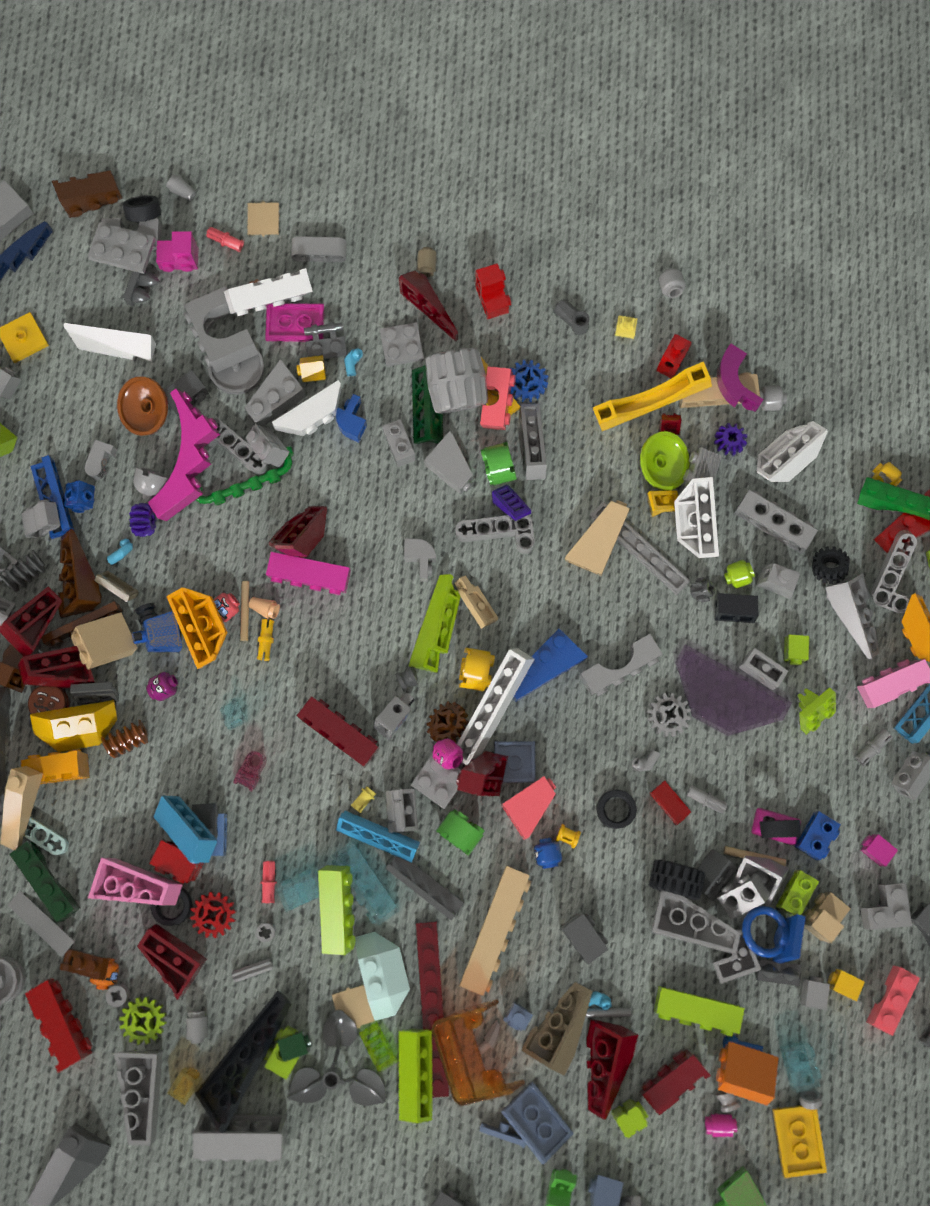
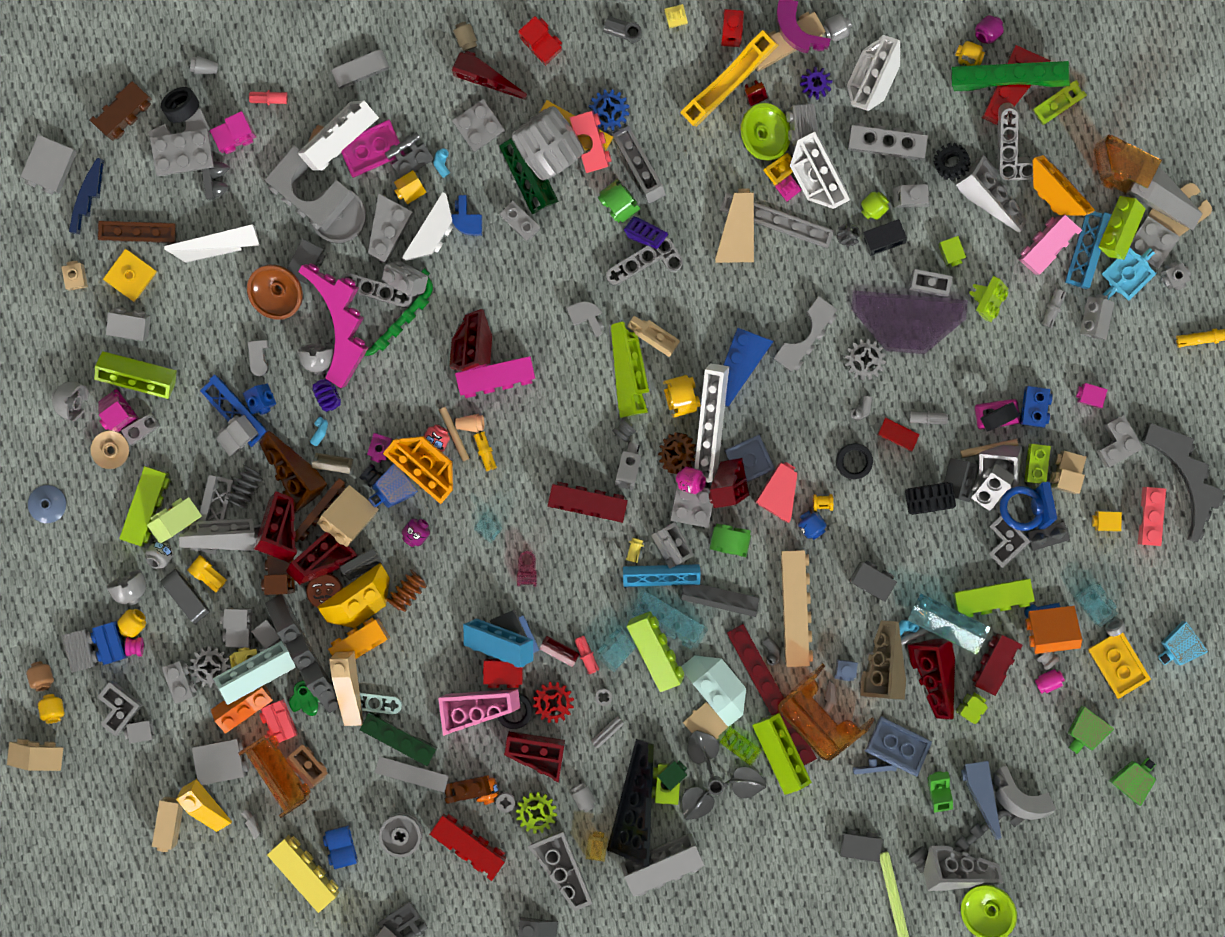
camera: 25 degrees left, 10 degrees up
(48, 301) = (137, 231): none -> reddish brown plate
(169, 583) = (378, 440): none -> magenta brick
(243, 866) = (559, 651): none -> dark red tile
(263, 218) = (293, 60): tan piece -> none
(450, 465) = (575, 220): light grey slope -> none
(454, 964) = (773, 653): none -> dark grey arm
(643, 1017) = (948, 623): none -> clear light blue brick
(663, 523) = (788, 188): none -> dark pink tile
(687, 922) = (954, 529): light grey wedge -> none
(815, 993) = (1085, 539): light grey brick -> none
(872, 1151) = (1181, 645): none -> medium azure torso
(914, 461) = (989, 29): none -> magenta head

